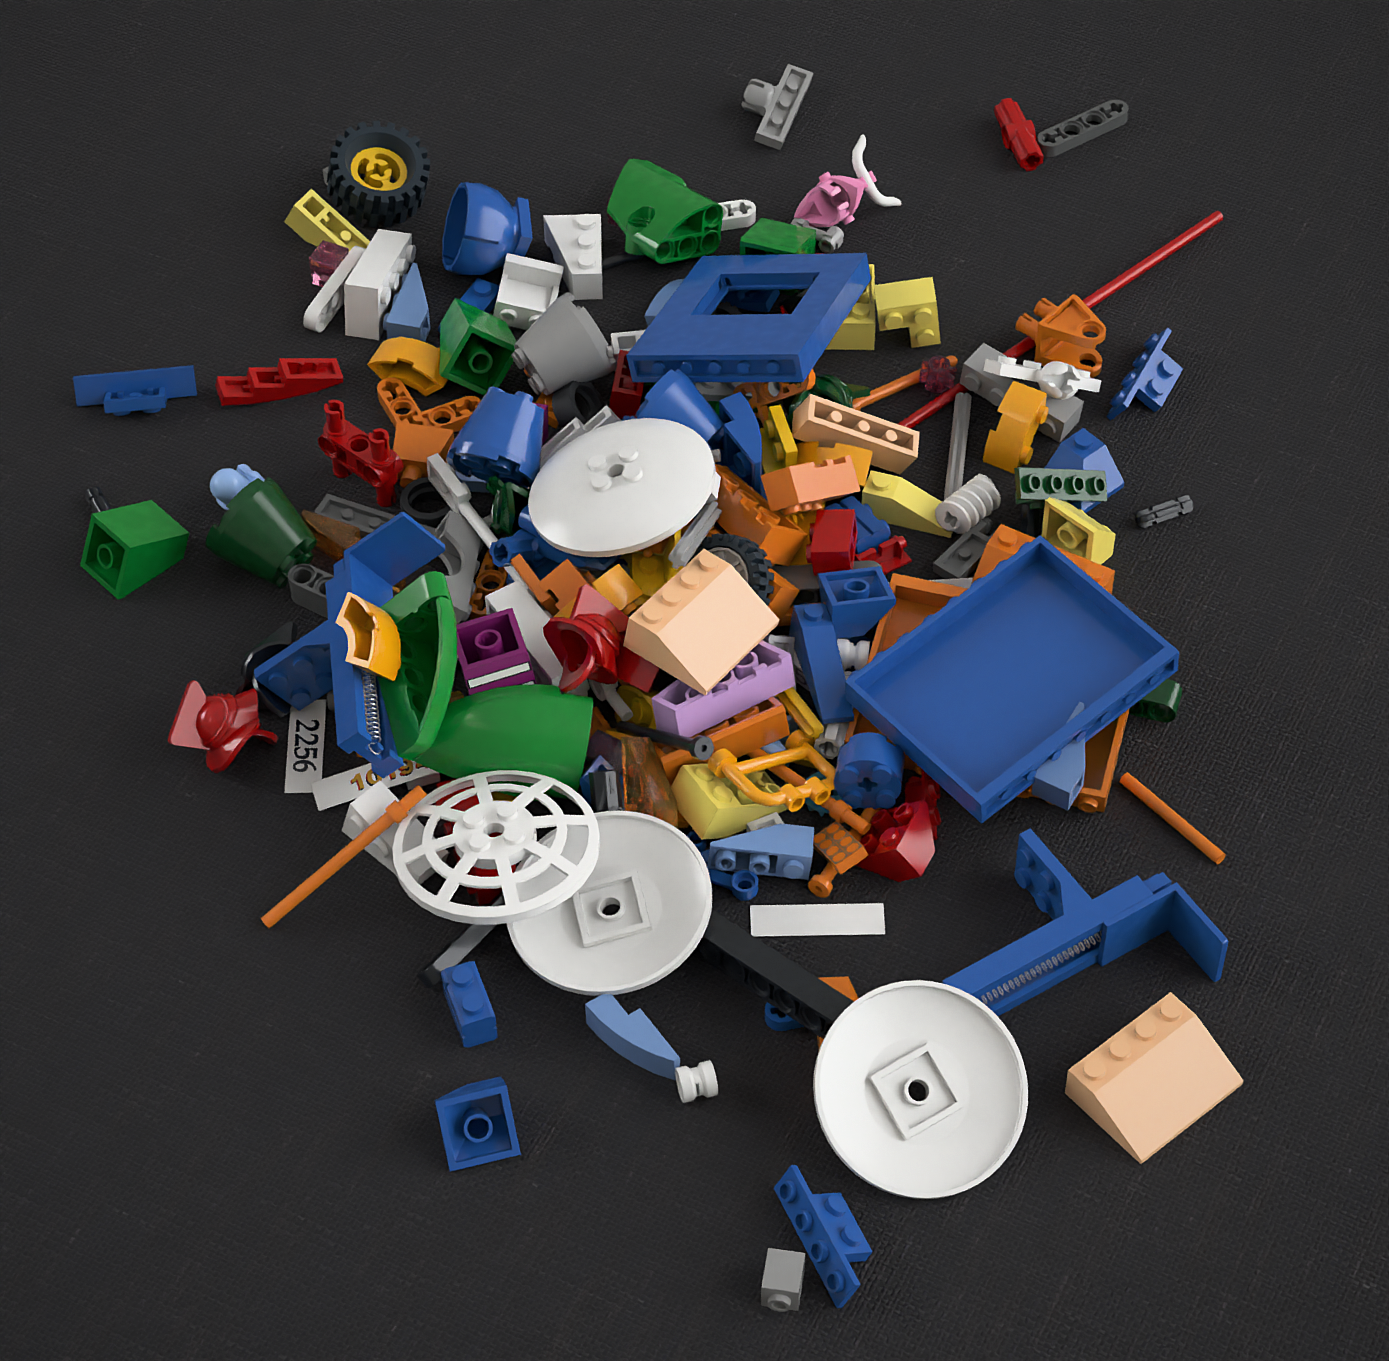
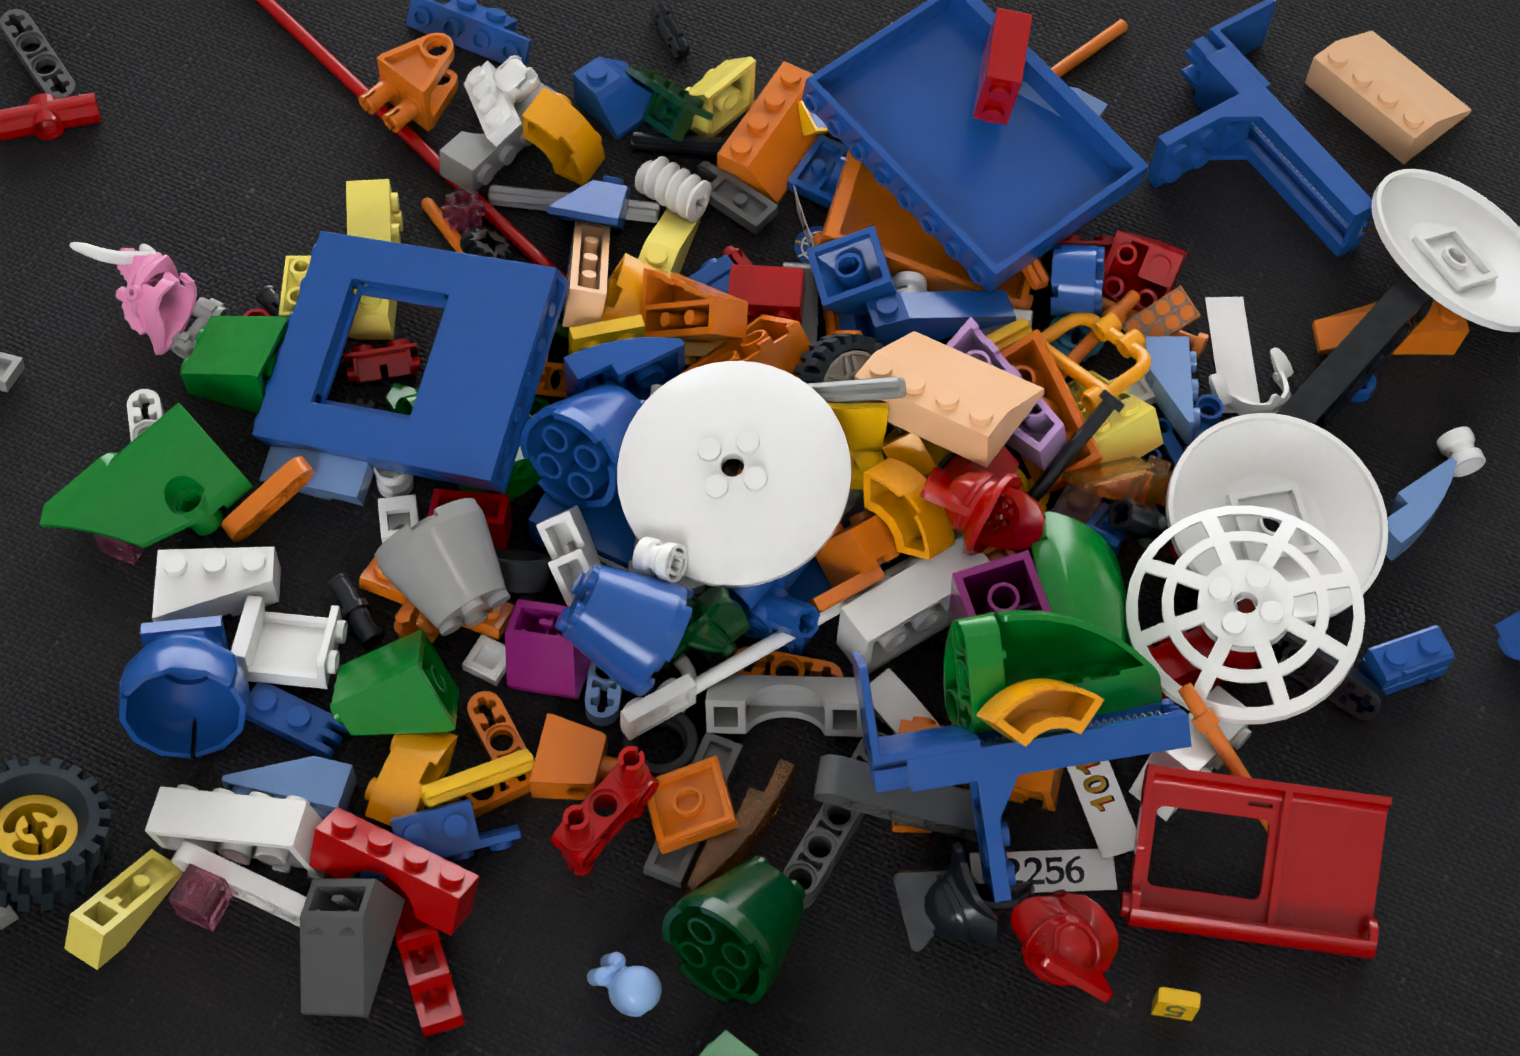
camera: 95 degrees left, 10 degrees up
(175, 811) = (1175, 1003): none -> yellow tile
(281, 906) = (1315, 870): none -> red piece
(296, 332) = (345, 944): none -> dark grey slope
(329, 348) = (437, 888): none -> red arch
(361, 380) = (448, 832): none -> blue bracket
(366, 510) = (691, 805): none -> orange tile
(401, 391) = (477, 778): none -> yellow axle
(544, 446) = (660, 559): none -> white wheel
(648, 272) = (268, 499): none -> orange beam
(761, 899) = (1242, 406): none -> white helmet
(894, 402) = (482, 242): none -> black gear
(933, 445) = (596, 203): none -> slope
(1056, 663) = (1002, 66): none -> red brick

